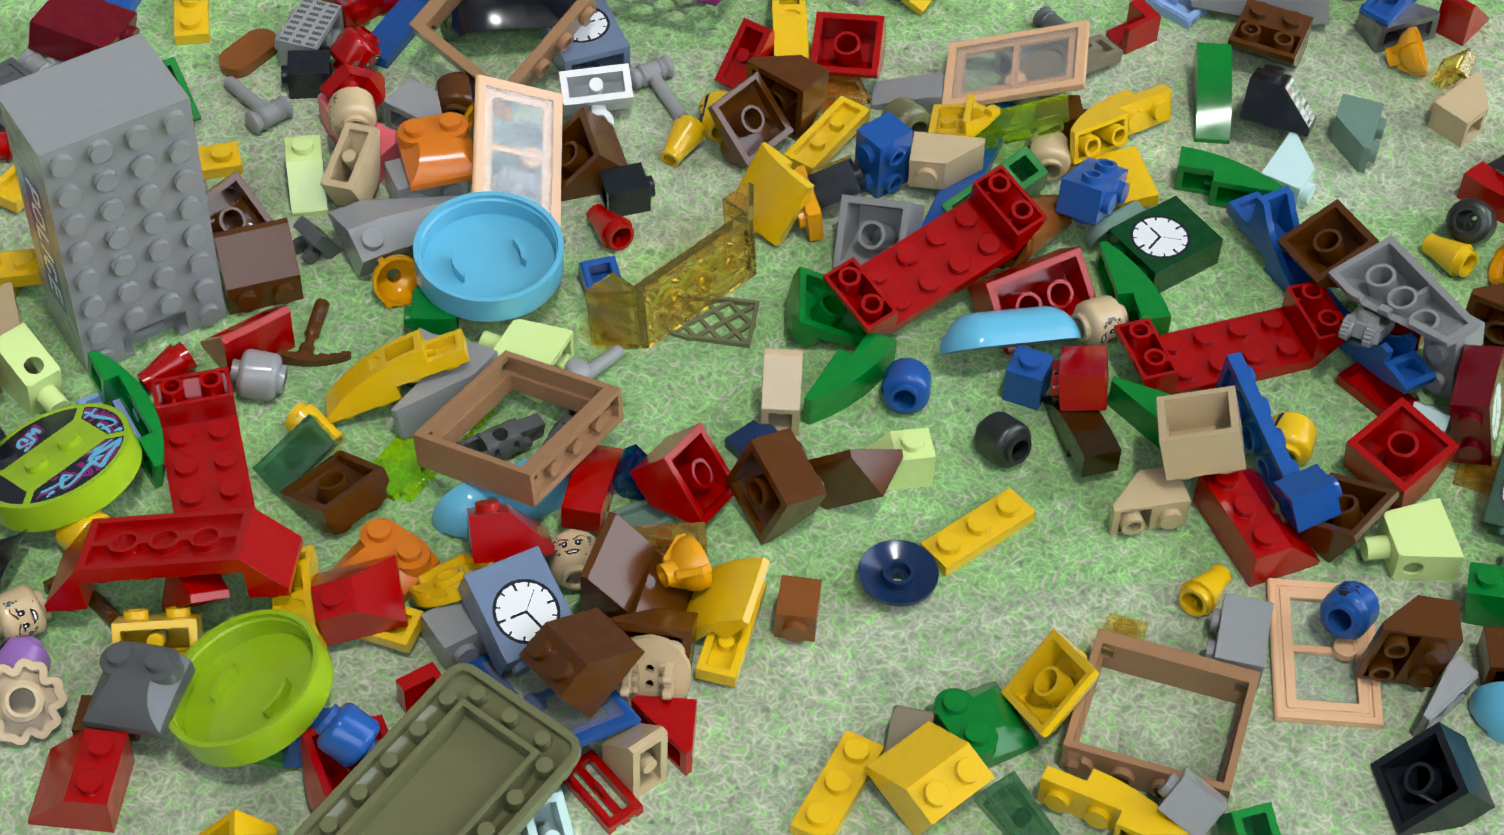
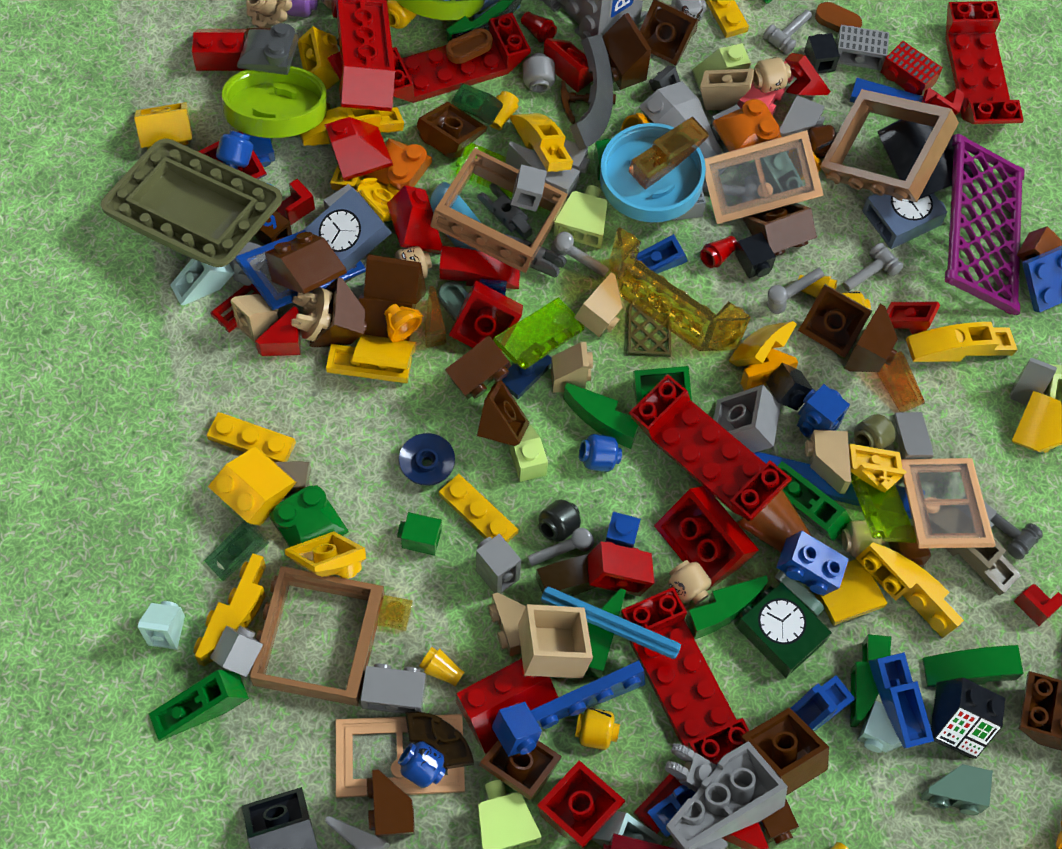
camera: 80 degrees right, 15 degrees up
(190, 447) = (469, 46): none -> dark orange tile
(326, 305) = (596, 119): none -> dark grey tile
(356, 48) = (848, 74): red head -> none
(472, 225) = (667, 152): none -> clear orange slope
(502, 375) = (528, 187): none -> light grey brick
(597, 90) = (845, 223): white brick -> none
(679, 353) = (602, 307): none -> tan slope
(698, 167) = (778, 294): none -> light grey piece
(721, 414) = (539, 333): none -> clear neon green windscreen
(797, 608) = (388, 399): dark orange brick -> none
(828, 134) = (848, 382): yellow plate -> none
(849, 44) = (939, 384): red slope -> none
(1008, 329) = (659, 516): medium azure brick -> none
(1012, 590) = (420, 533): none -> green brick
(1034, 416) = (580, 539): none -> light grey piece
(1073, 500) = (497, 563): none -> light grey brick
(1167, 384) = (615, 624): none -> dark azure axle
(1263, 143) = (901, 700): none -> blue slope
(1301, 601) = (441, 737): none -> dark brown tile

